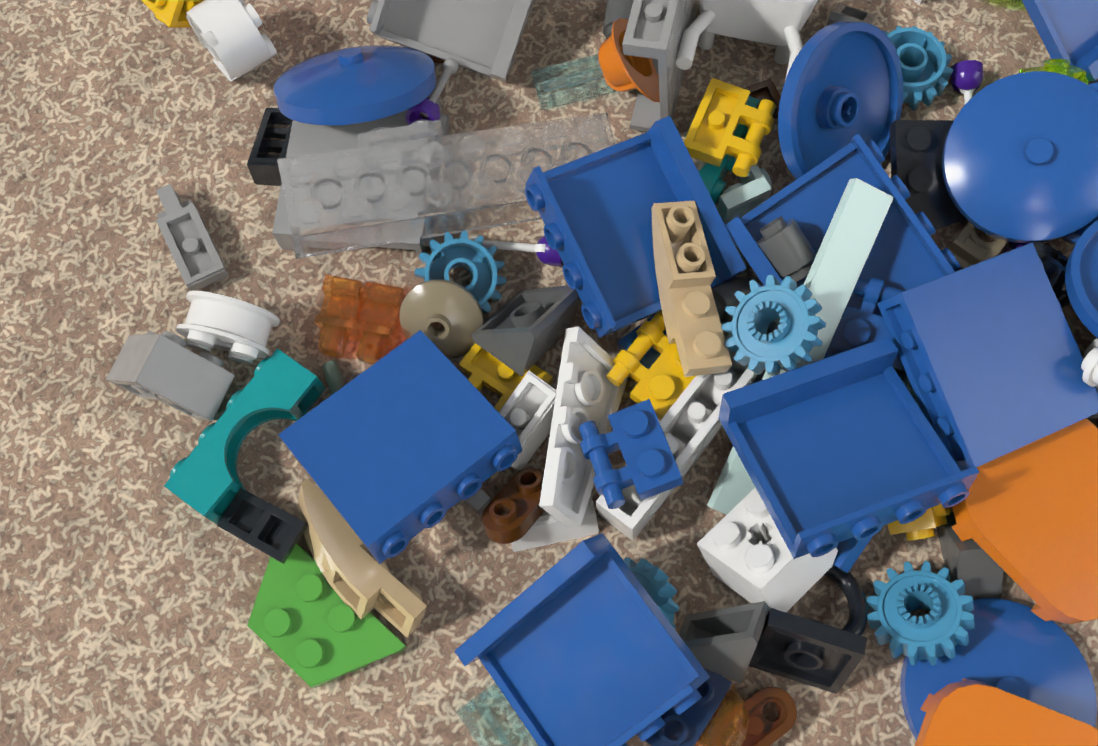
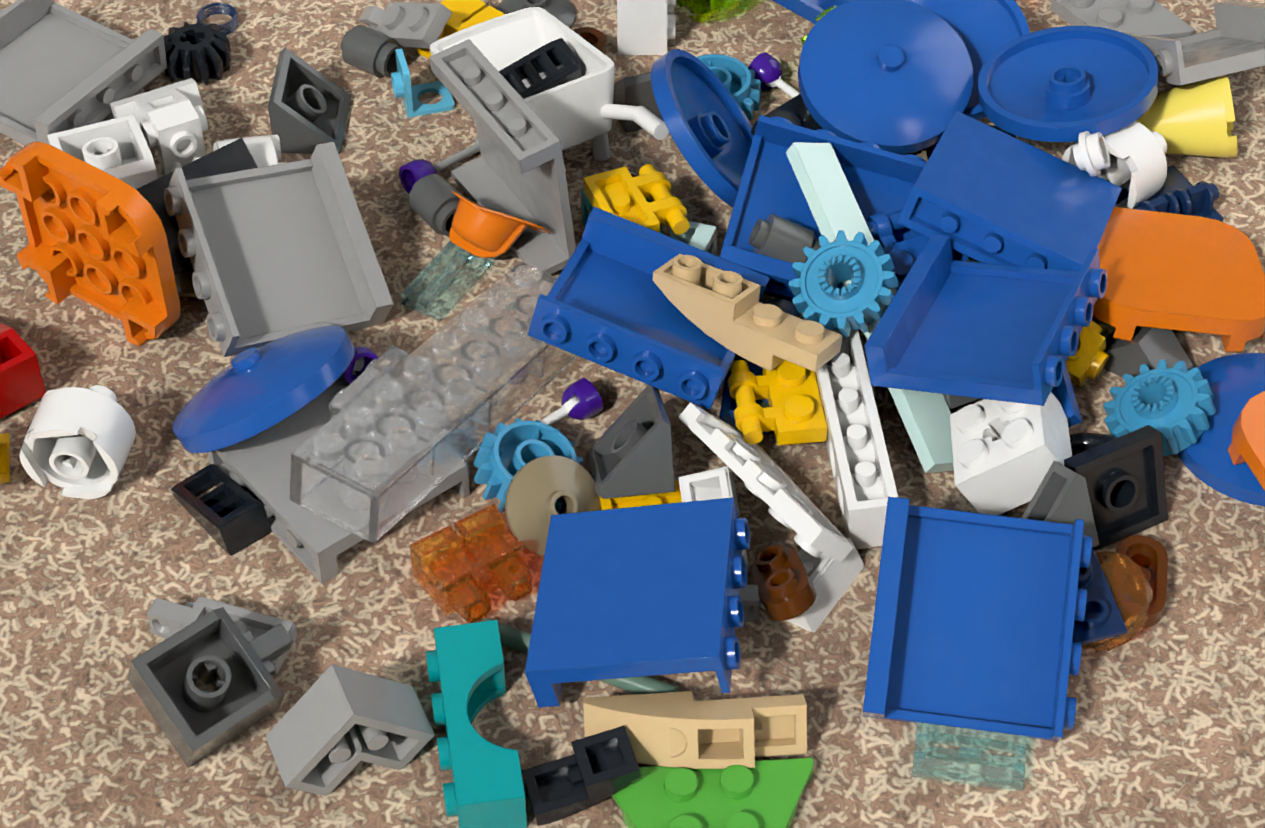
camera: 50 degrees left, 25 degrees down
(126, 274) = (216, 653): none -> dark grey hinge
(227, 326) = (367, 635): white wheel -> none
(644, 450) = (841, 442): blue plate -> none

